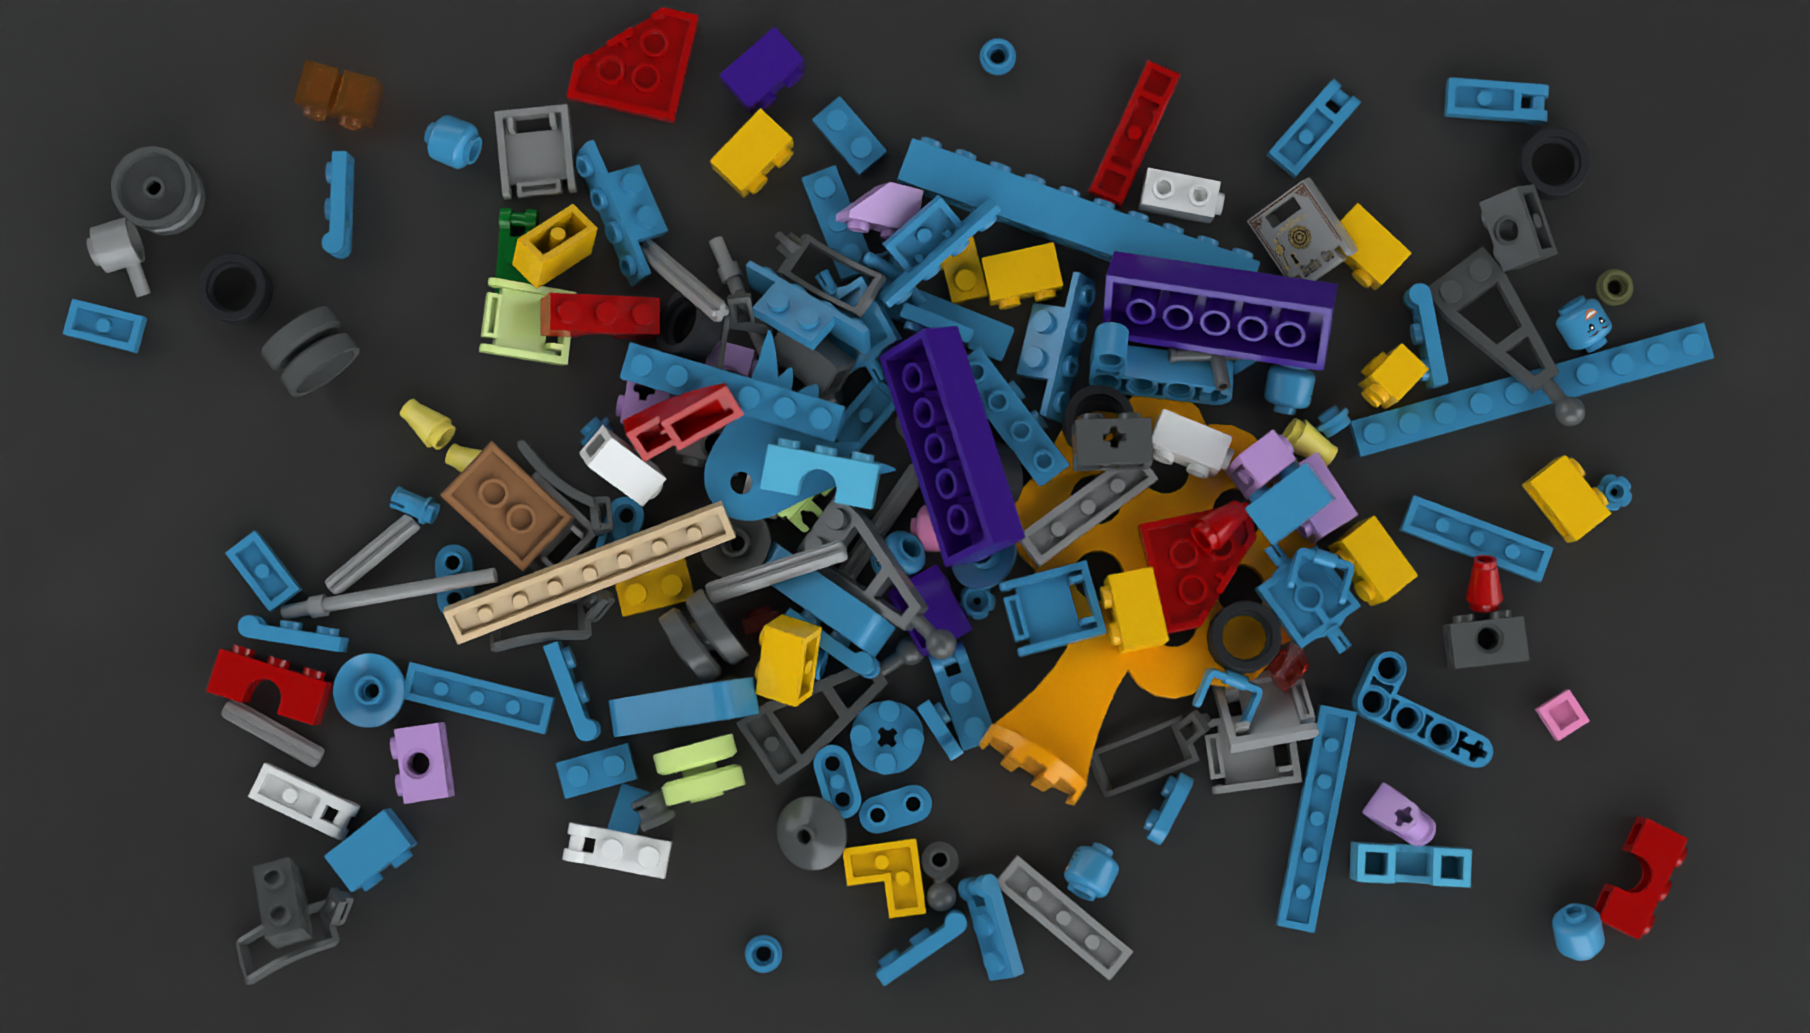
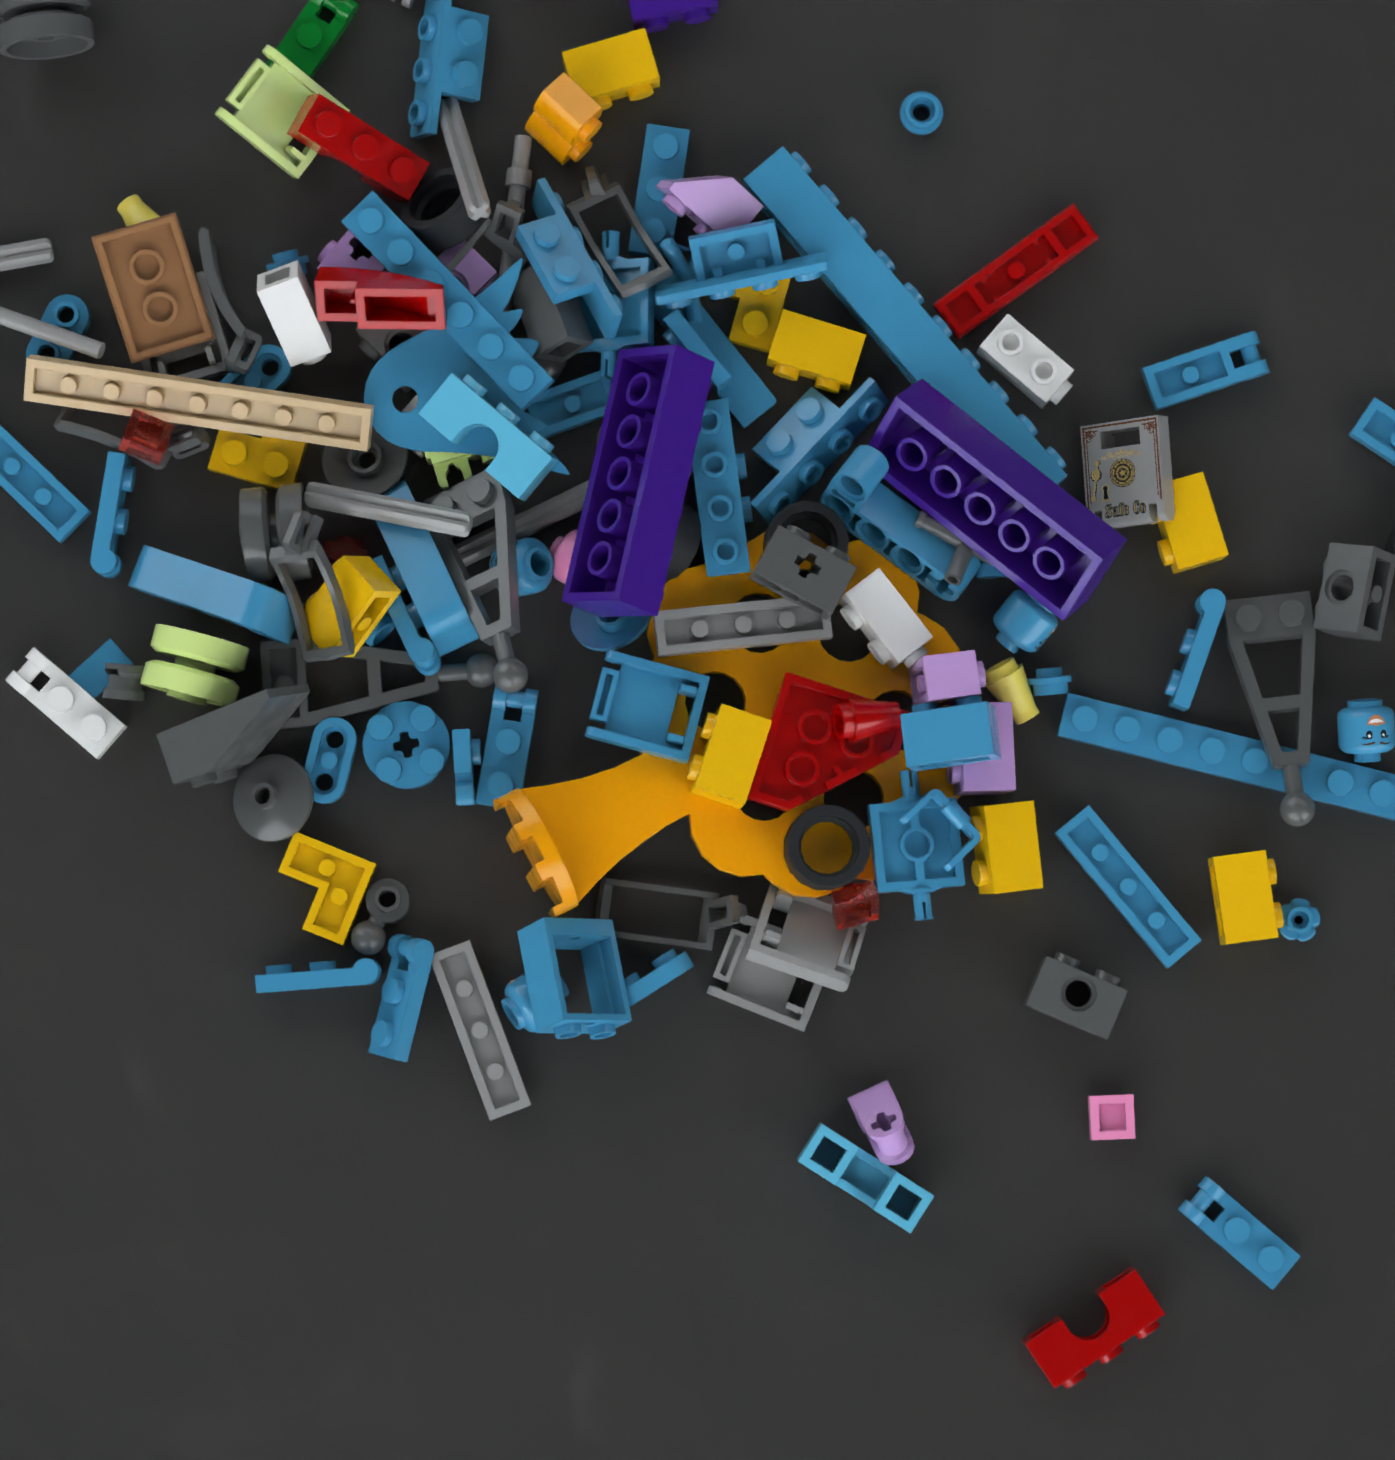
camera: 25 degrees right, 0 degrees up
(417, 506) = (67, 243): dark azure pin -> none
(429, 425) = (122, 161): light yellow cone -> none
(554, 246) = (353, 50): yellow brick -> none
(565, 620) = (146, 437): none -> clear red plate
(597, 770) = (91, 610): dark azure plate -> none
(739, 635) = (310, 548): none -> dark grey sword
(741, 209) = (565, 120): none -> light orange brick
(749, 819) = (228, 737): none -> dark grey slope
(755, 962) = (140, 889): dark azure plate -> none
(849, 136) = (722, 109): dark azure plate -> none
(895, 809) = (372, 823): dark azure plate -> none
(943, 608) = (536, 640): dark purple brick -> none
(977, 611) = (575, 670): dark azure plate -> none
(1129, 823) = (602, 972): none -> dark azure window
(1232, 679) = (791, 885): dark azure piece -> none
(1316, 819) = (797, 1078): dark azure plate -> none
(1390, 376) = (1133, 668): yellow brick -> none
(1423, 719) = (966, 1038): dark azure beam -> none
(1484, 587) = (1107, 938): red cone -> none
(1578, 931) = (998, 1345): dark azure head -> none
(1705, 746) = (1240, 1234): none -> dark azure plate

